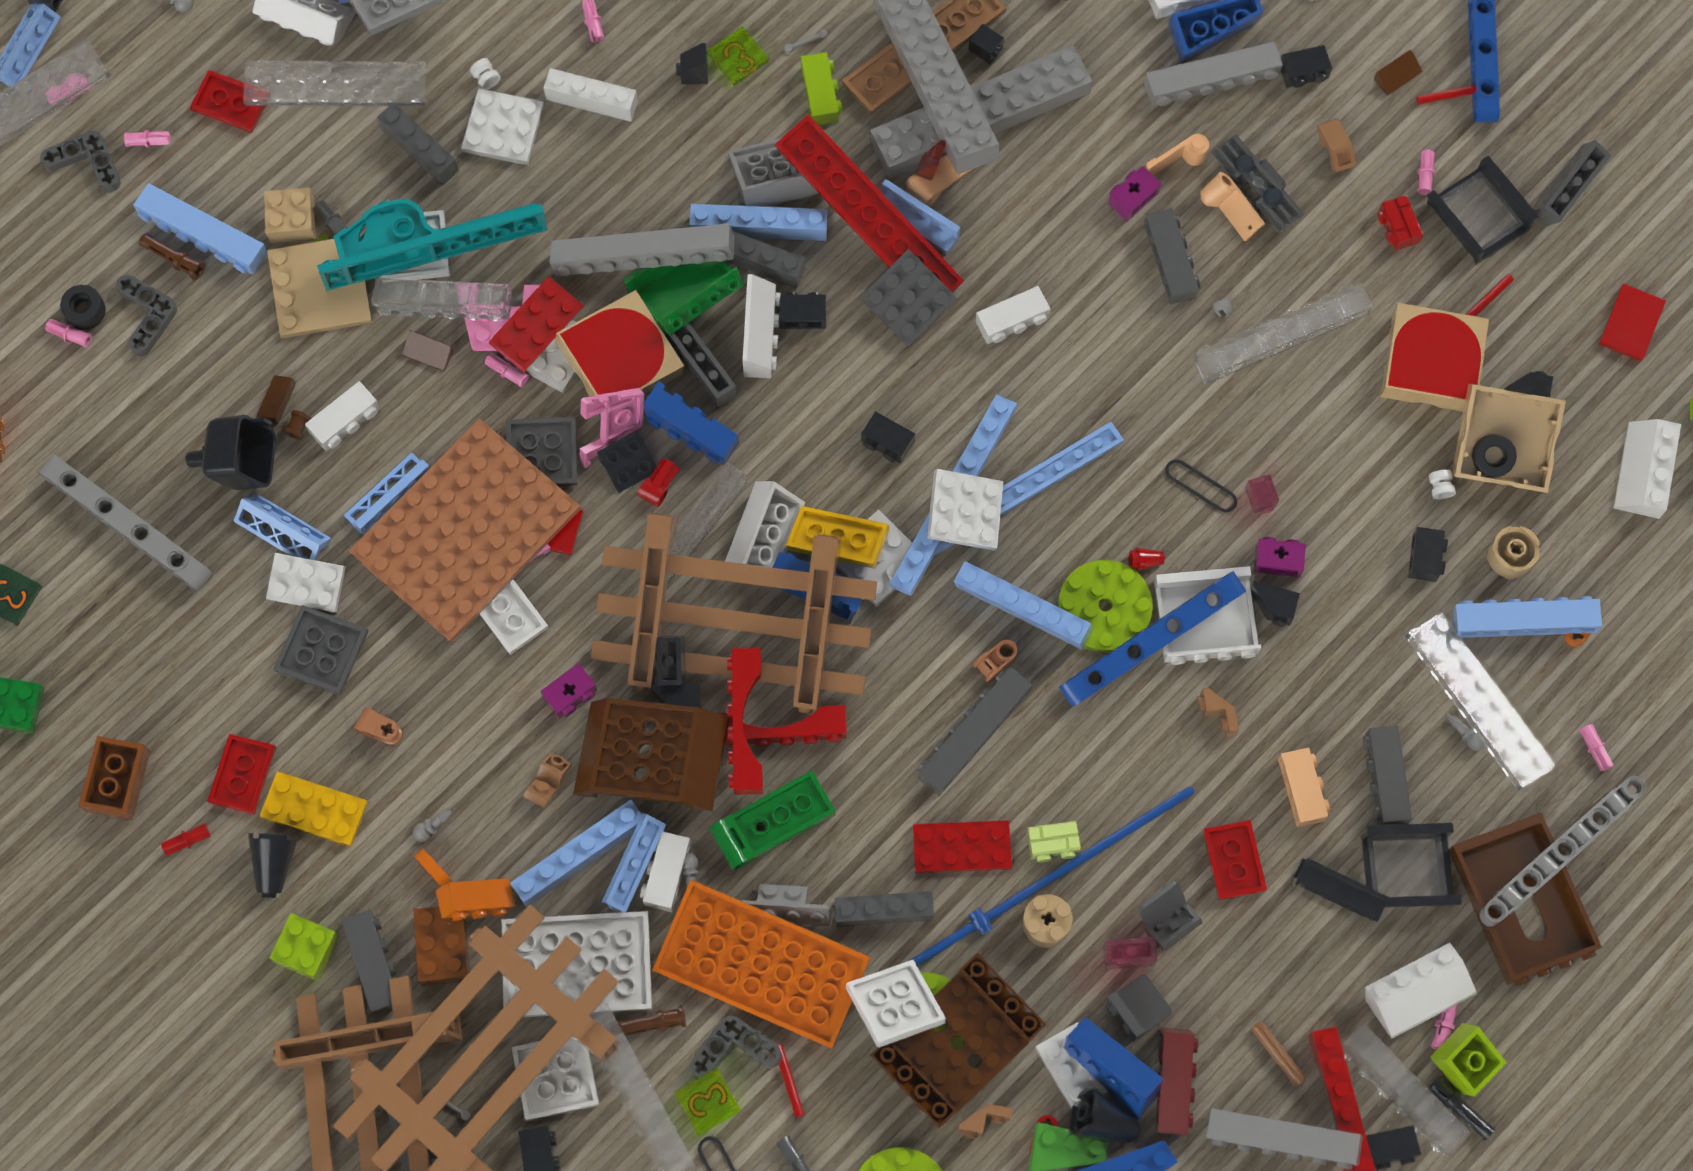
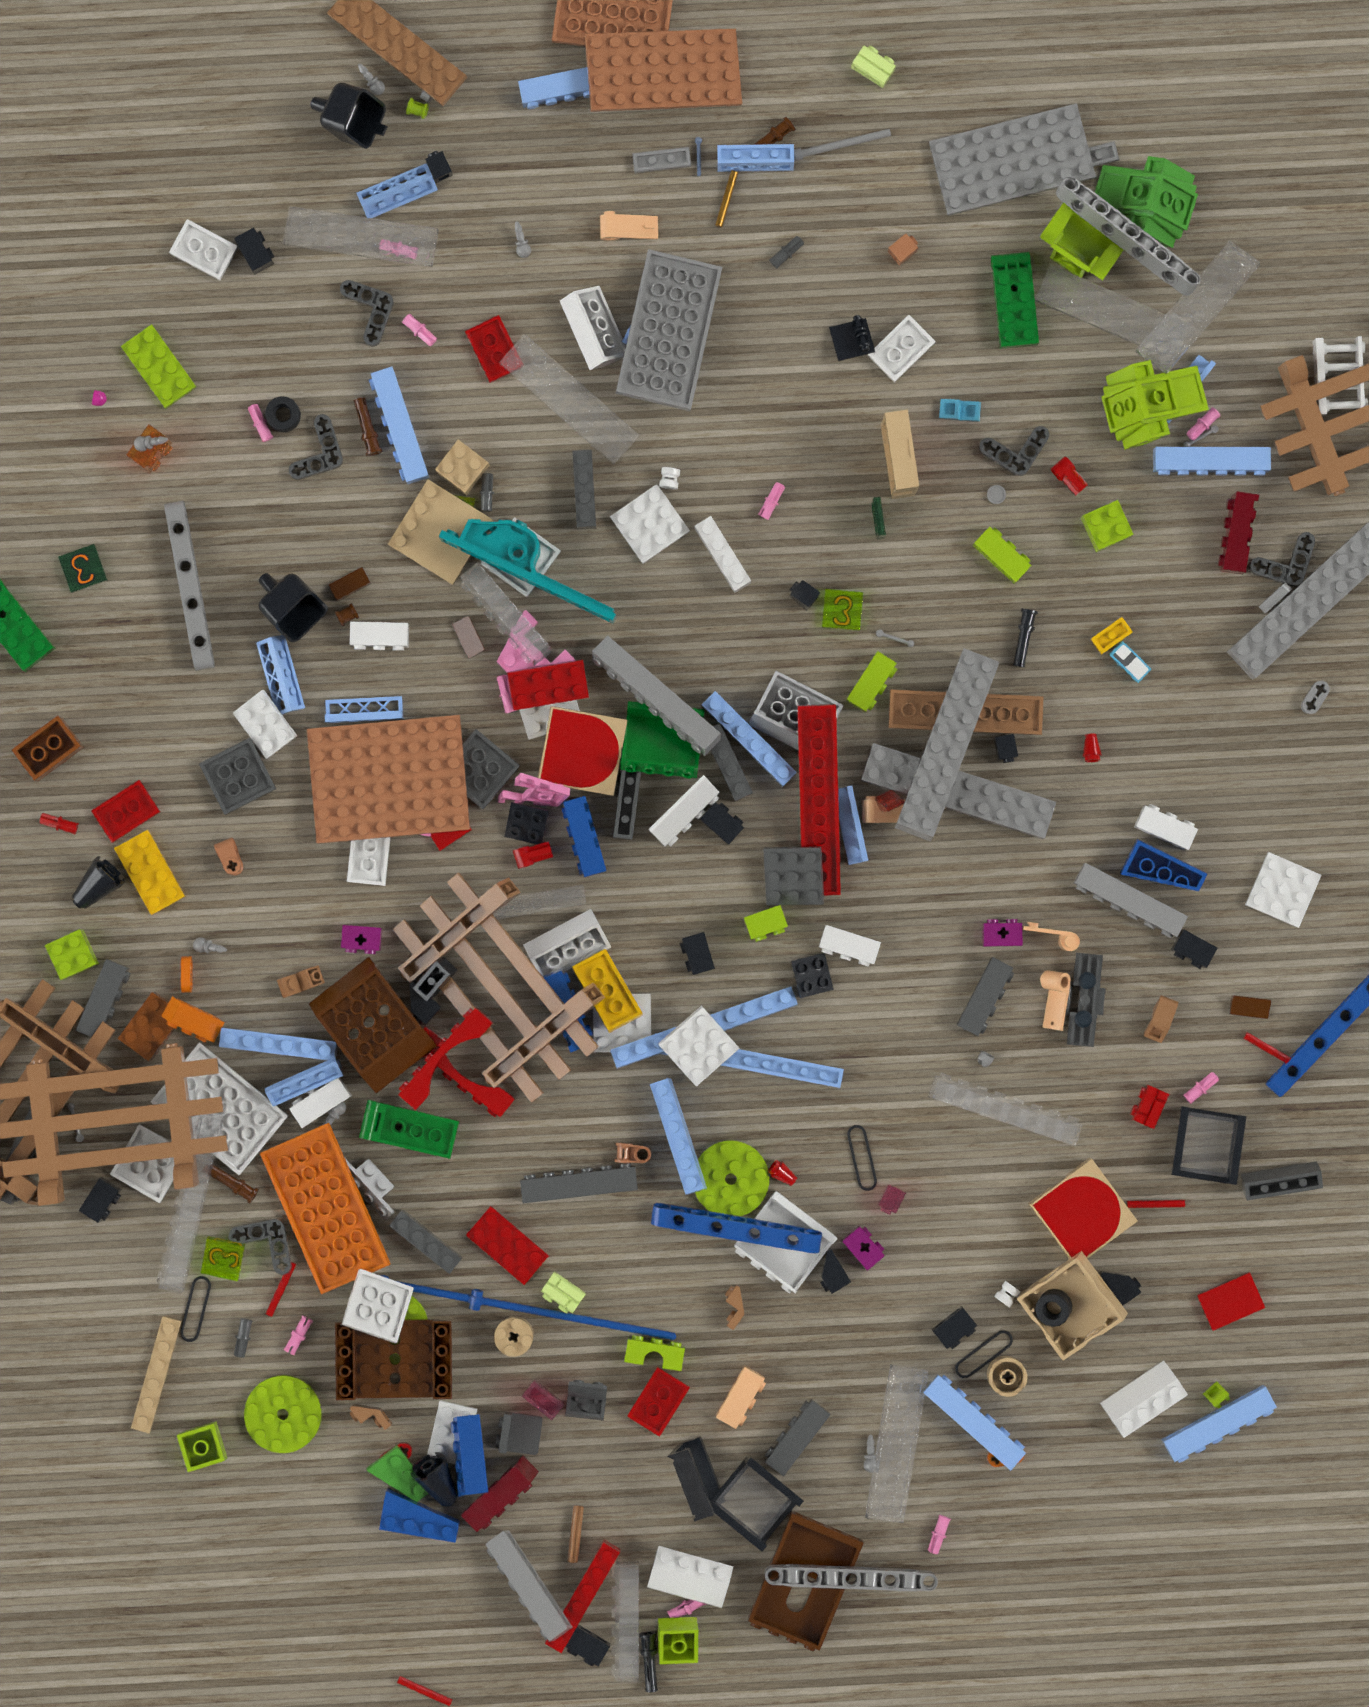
camera: 40 degrees right, 15 degrees up
(845, 1108) = (298, 1335): none -> bright pink pin
(922, 356) = (765, 922): none -> lime brick
(1005, 369) = (812, 975): none -> black hinge
(1205, 806) = (639, 1348): none -> lime arch
(1483, 558) = (989, 1360): none -> black piece

